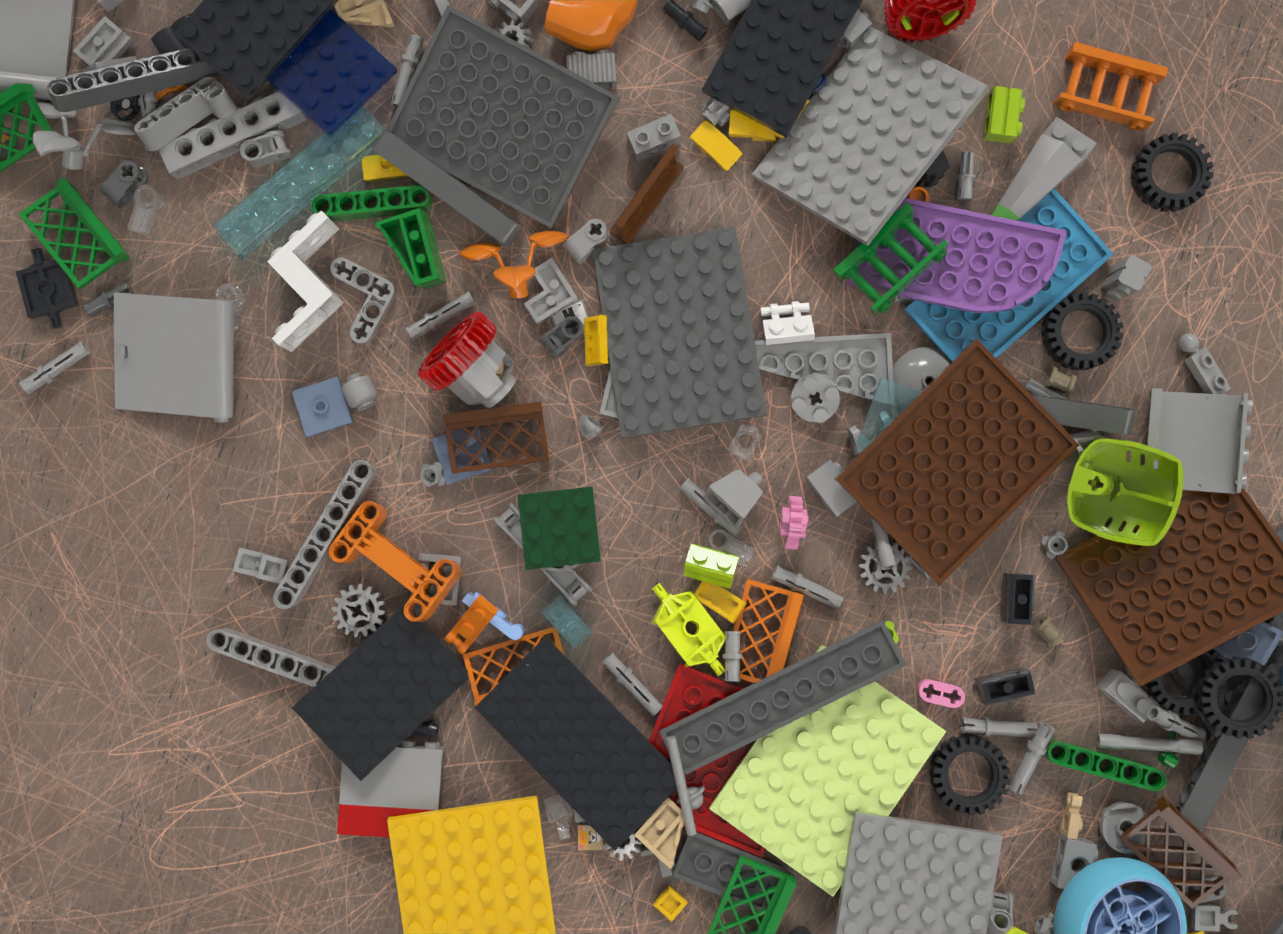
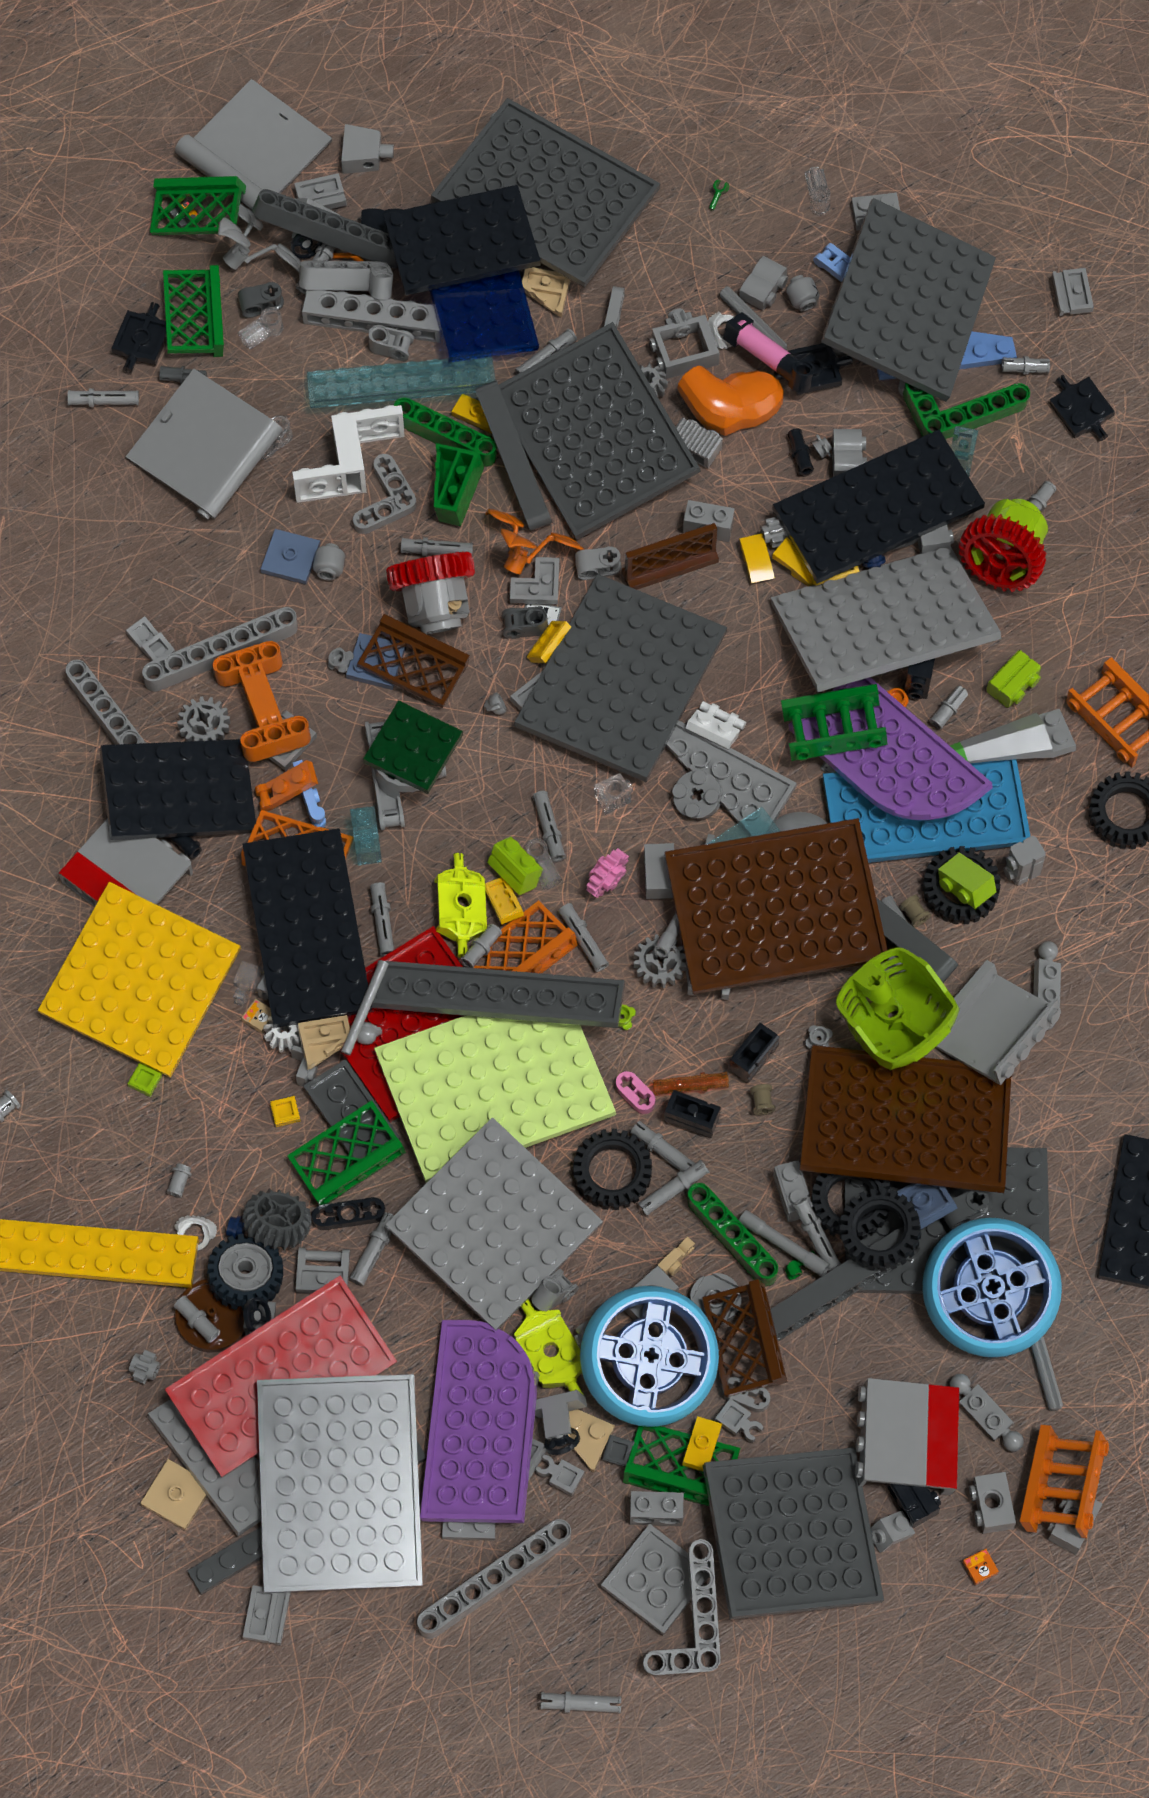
camera: 30 degrees right, 20 degrees down
(735, 496) = (574, 824): light grey torso -> none
(981, 655) = (691, 1083): none -> clear orange pin
(1095, 331) = (967, 880): none -> lime brick

